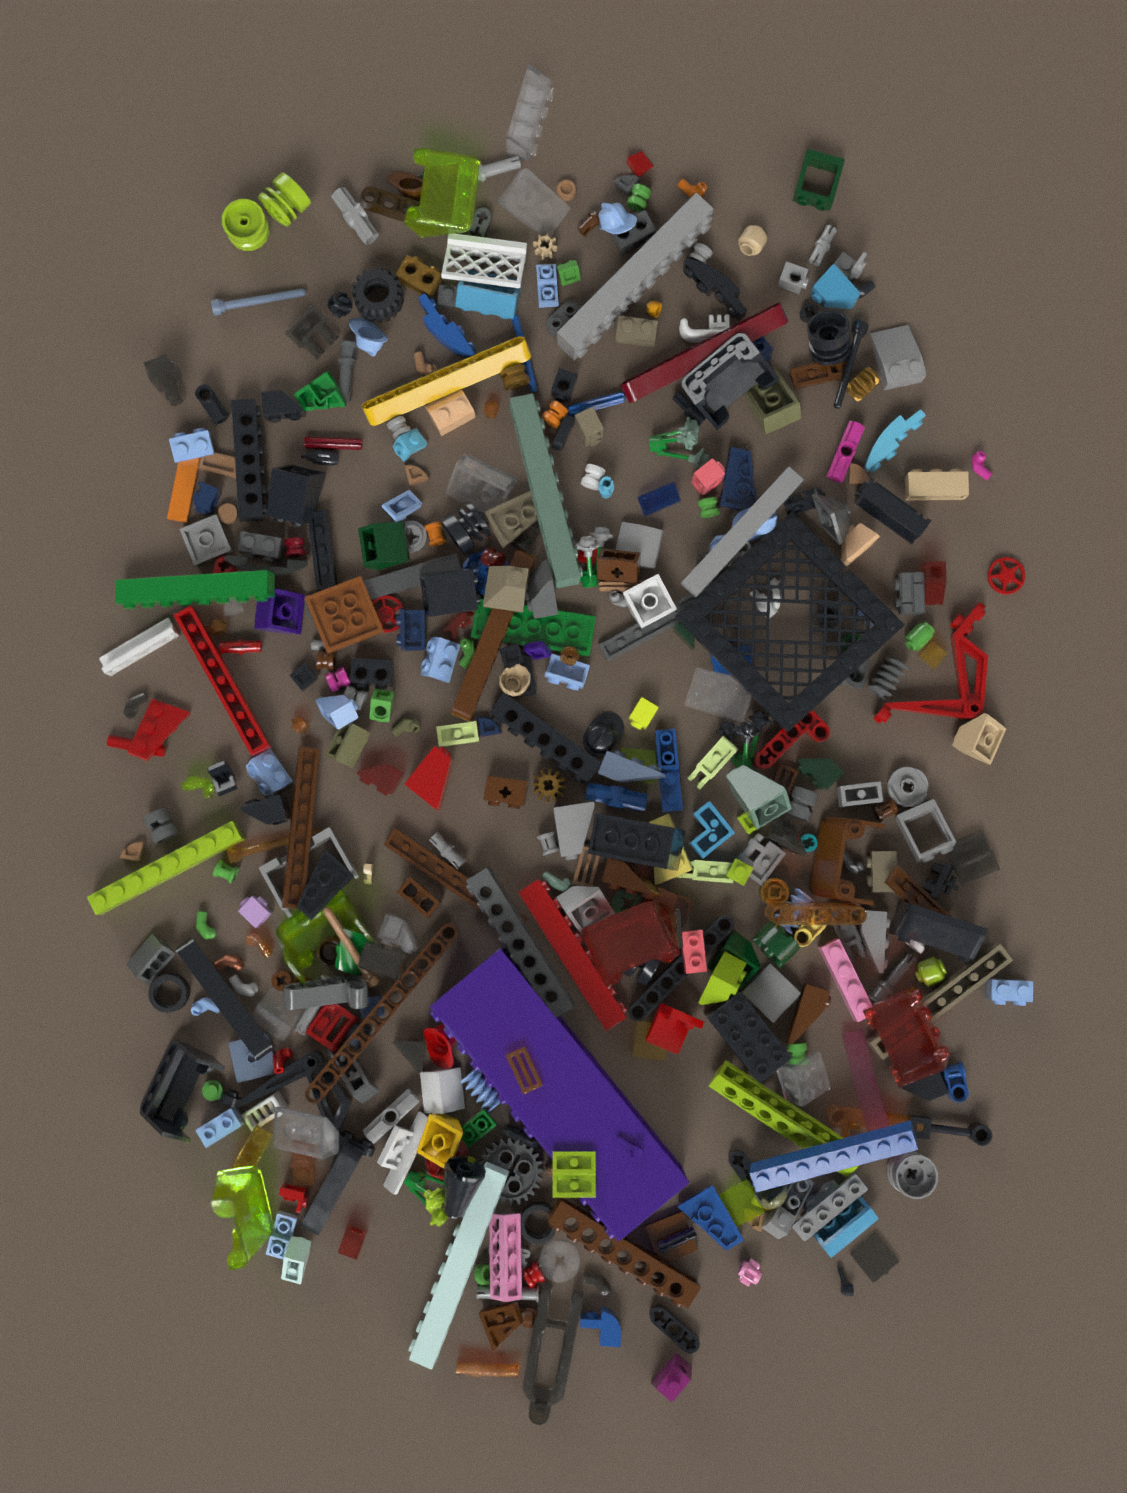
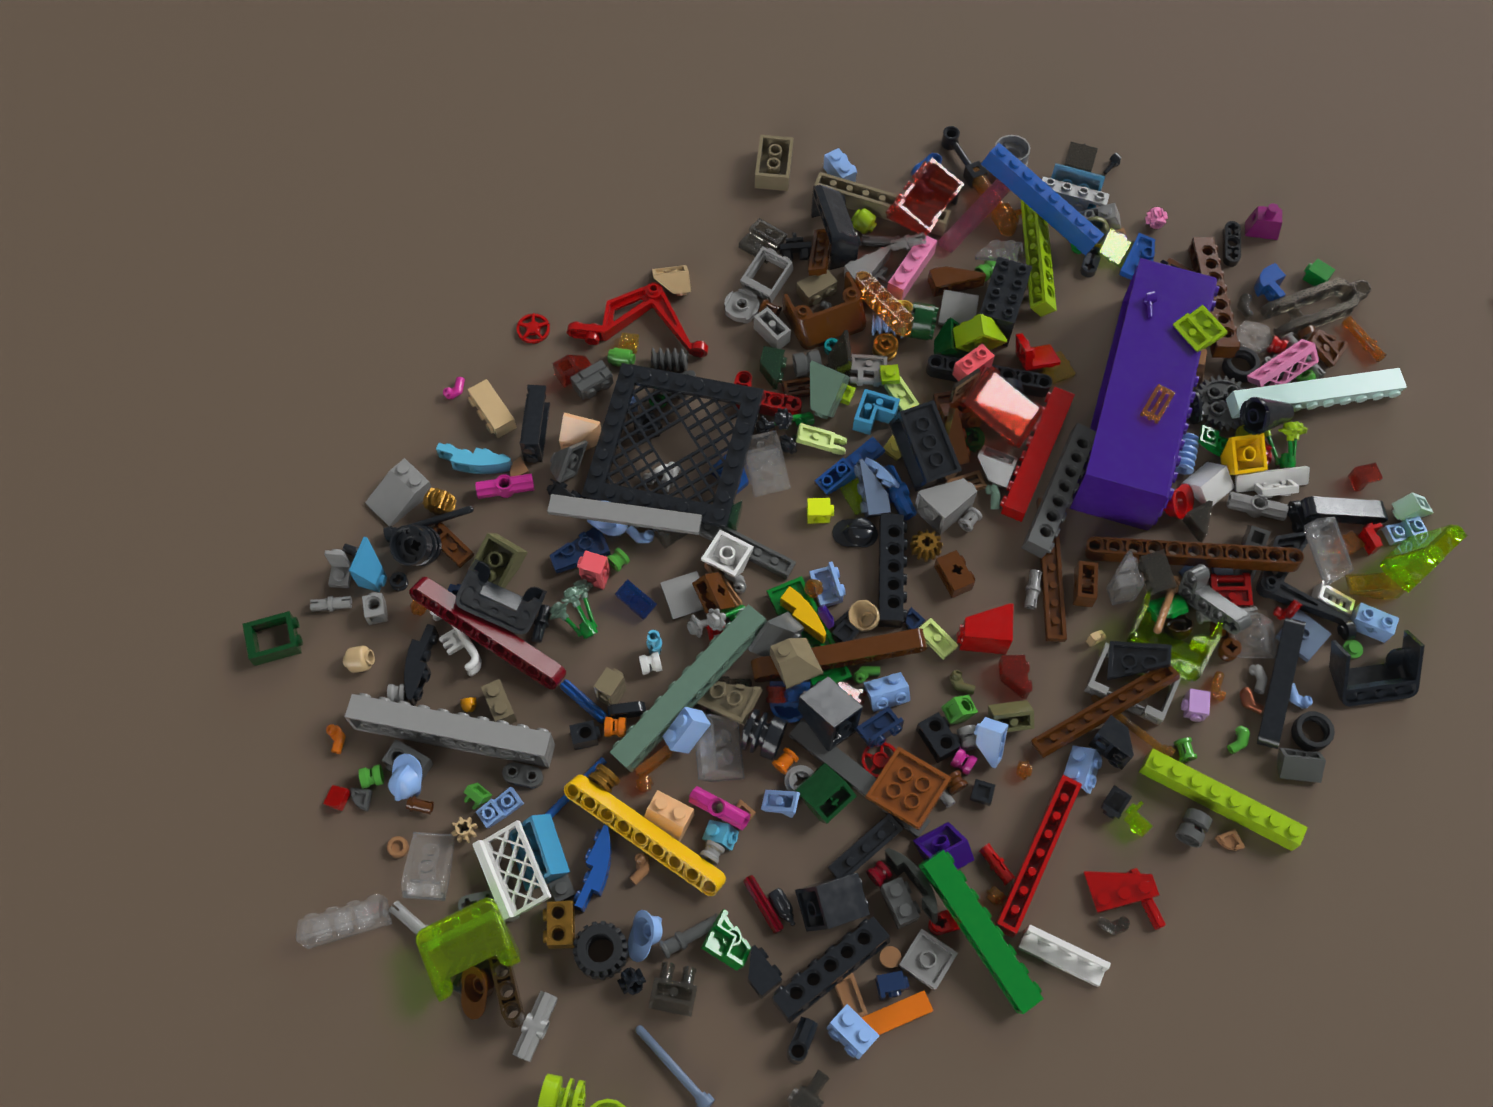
camera: 125 degrees left, 20 degrees down
(420, 459) = (729, 813): none -> dark pink piece
(503, 427) = (653, 762): none -> clear orange tile
(510, 465) = (686, 730): none -> light blue brick
(549, 629) = (803, 613): none -> yellow slope
(583, 1385) = (1318, 273): none -> green brick
(635, 790) = (882, 474): none -> light blue slope
(871, 989) = (908, 241): none -> light grey pin
(1057, 927) = (774, 162): none -> dark tan brick

